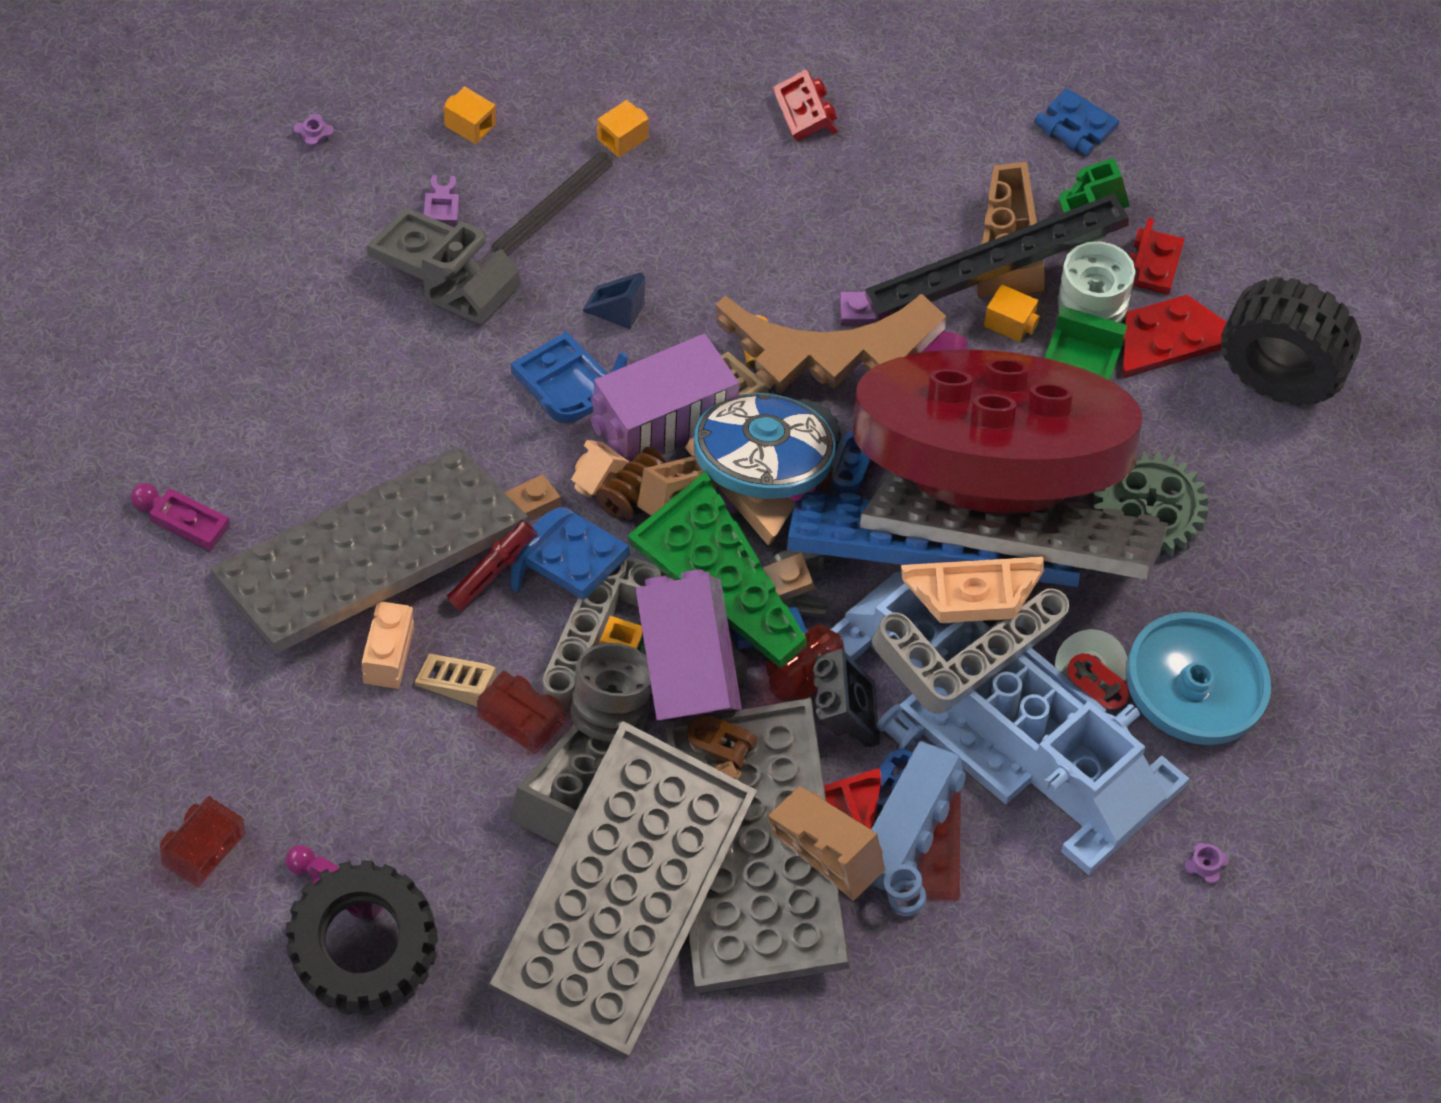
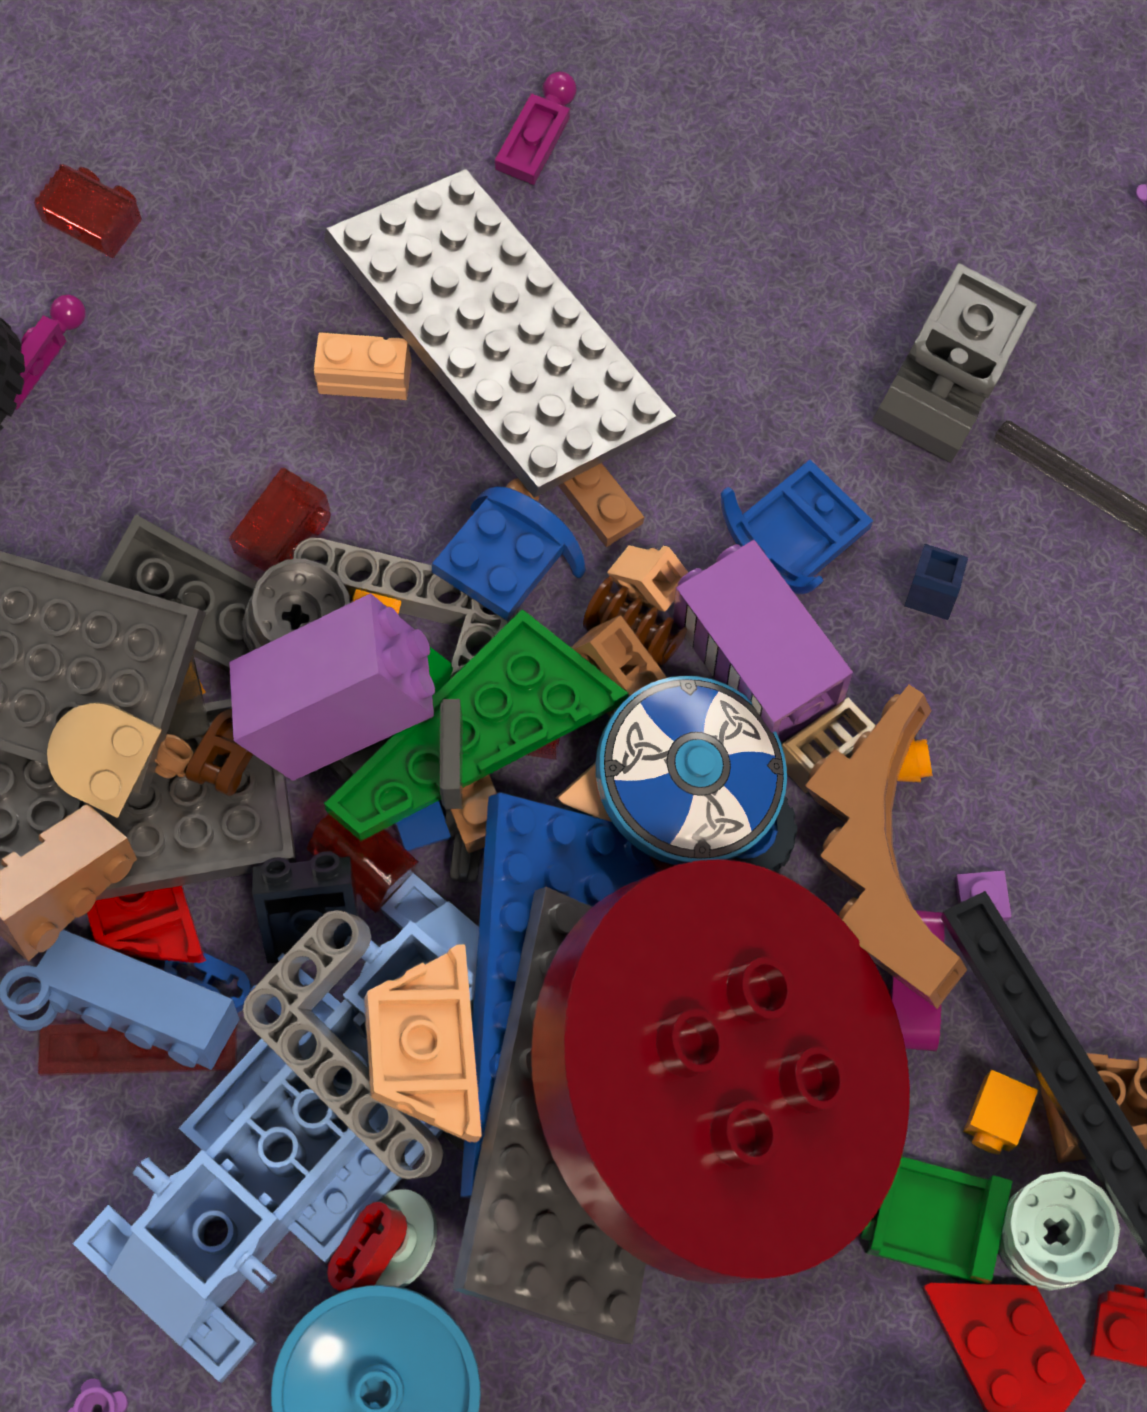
camera: 90 degrees right, 15 degrees up
(442, 202) = (1060, 354): medium lavender plate -> none
(462, 692) = (332, 483): tan slope -> none
(502, 554) = (486, 468): dark red pin -> none
(727, 806) = (100, 754): none -> tan slope
(753, 568) = (451, 753): none -> dark grey tile
(1155, 478) = (725, 1327): sand green gear -> none

